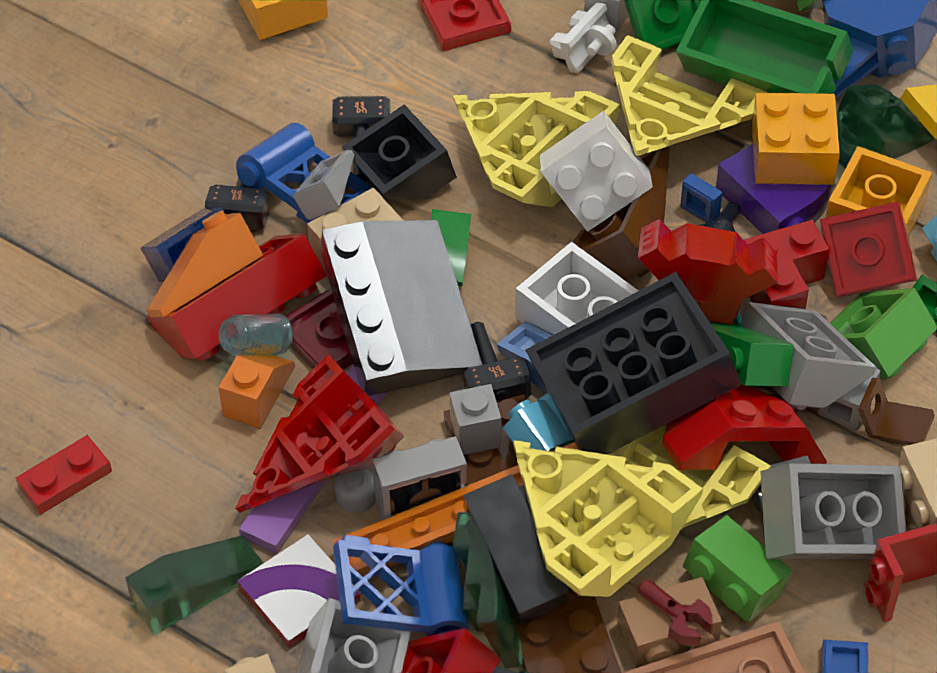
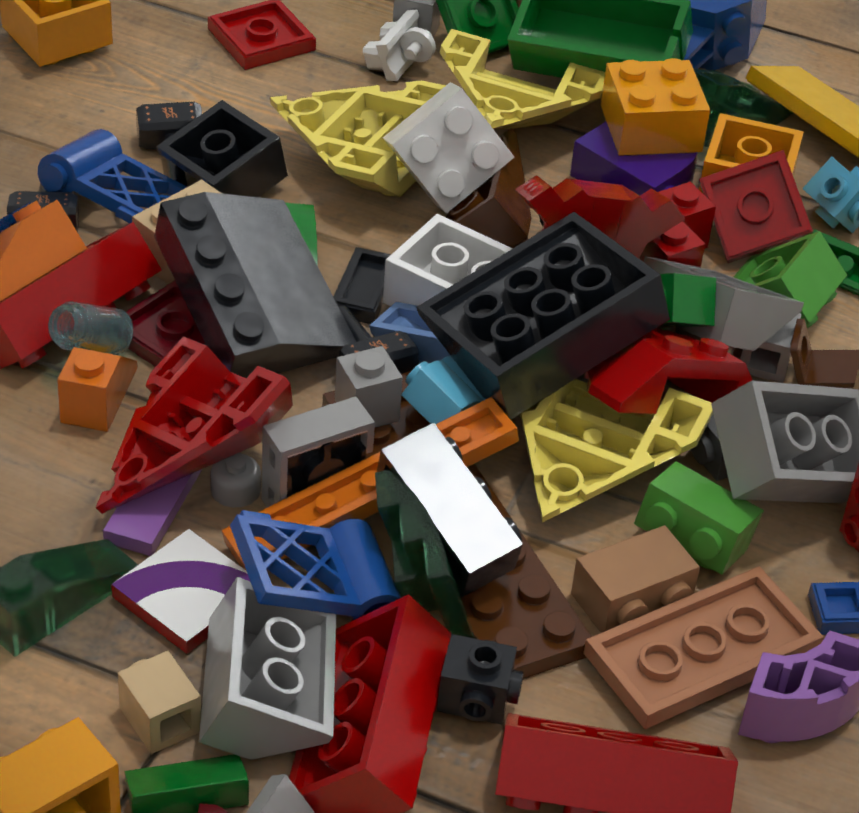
camera: 15 degrees left, 10 degrees down
(324, 186) = (146, 181): light grey slope -> none
(498, 301) = (363, 284): none -> black tile
(602, 516) = (544, 462): light yellow wedge -> none
(678, 613) = (655, 564): dark red bar -> none
(701, 198) = (556, 168): blue tile -> none

